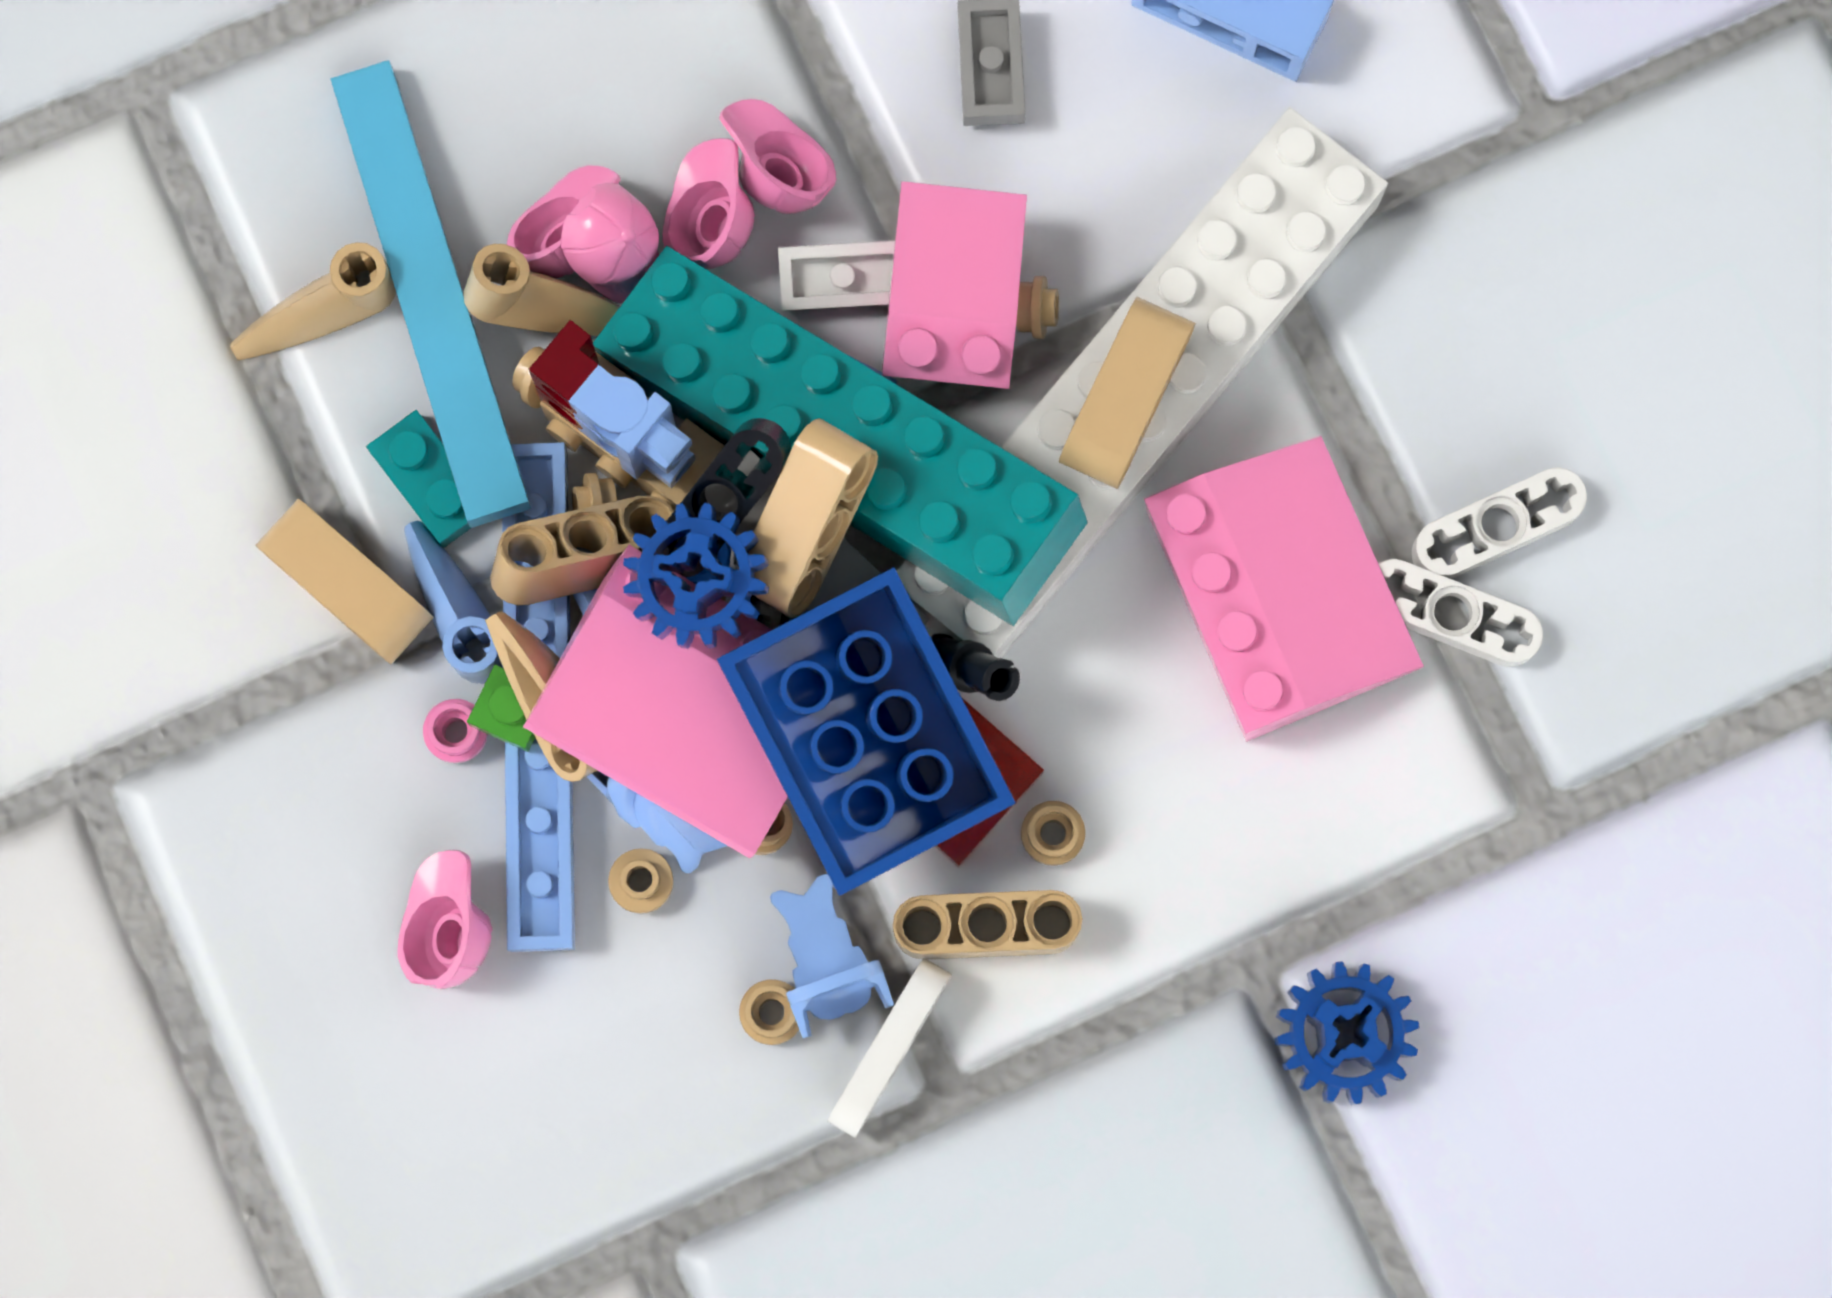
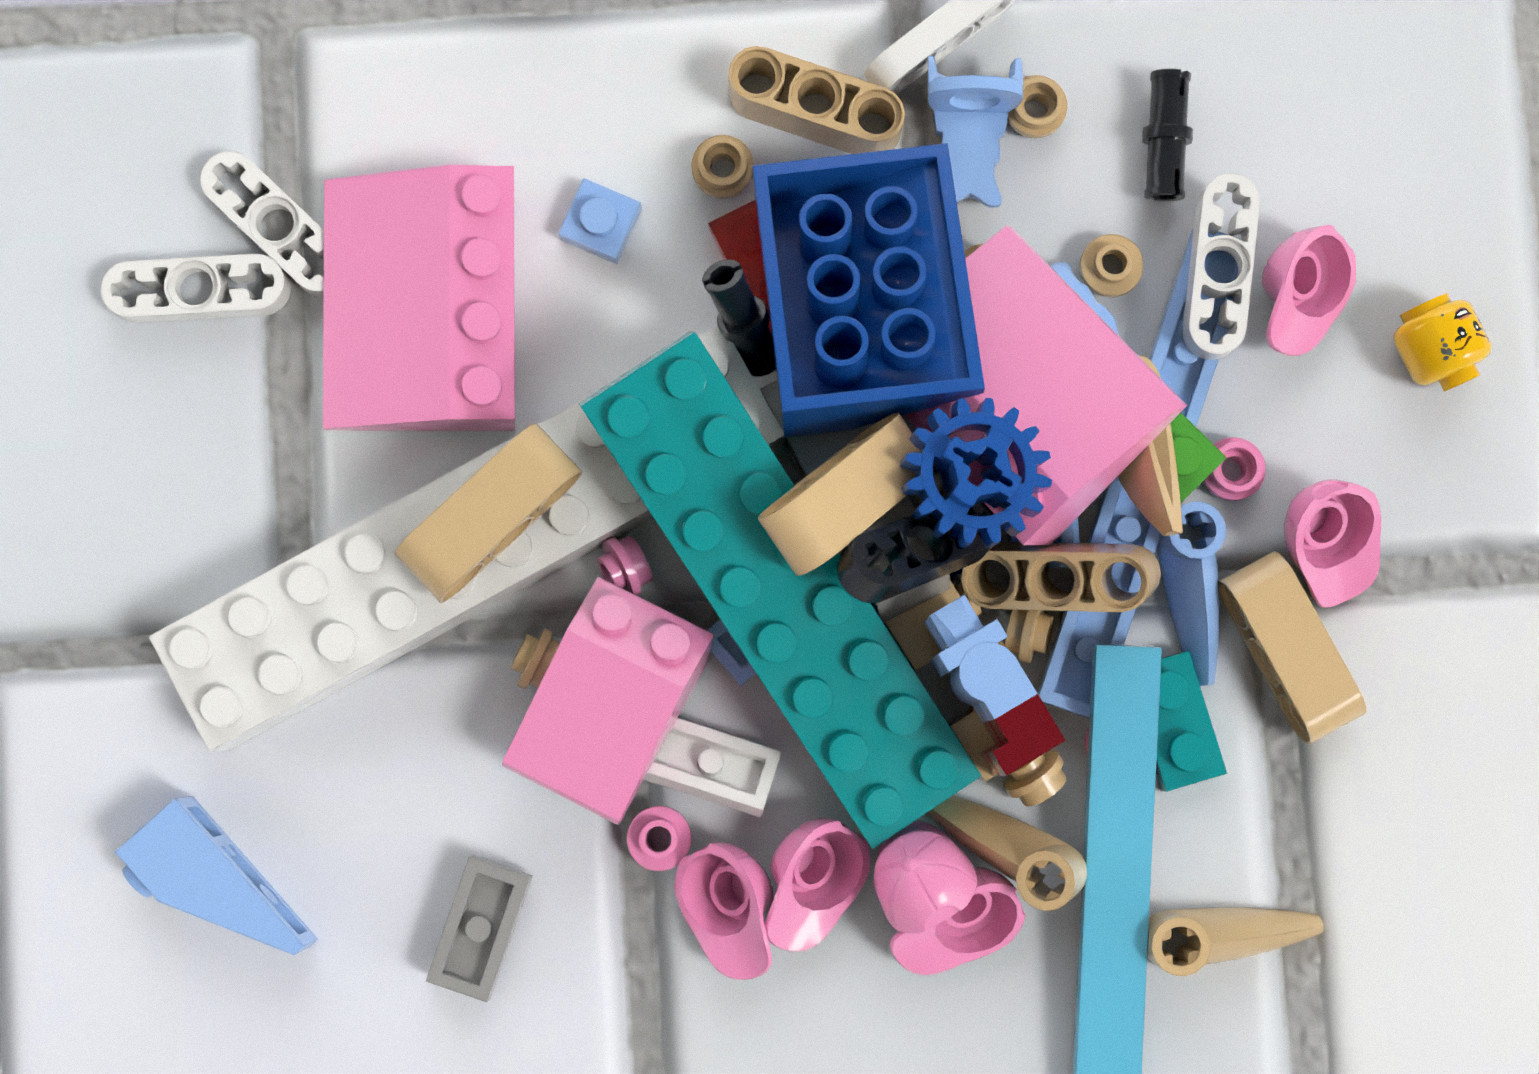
camera: 165 degrees left, 5 degrees up
(294, 923) = (1442, 342): none -> yellow head
(338, 692) = (1334, 539): none -> bright pink piece
(507, 864) = (1210, 219): none -> white beam
(632, 1030) = (1167, 135): none -> black pin
(866, 214) = (679, 832): none -> bright pink plate
(991, 419) = (624, 564): none -> bright pink plate
(1148, 736) = (600, 221): none -> light blue plate

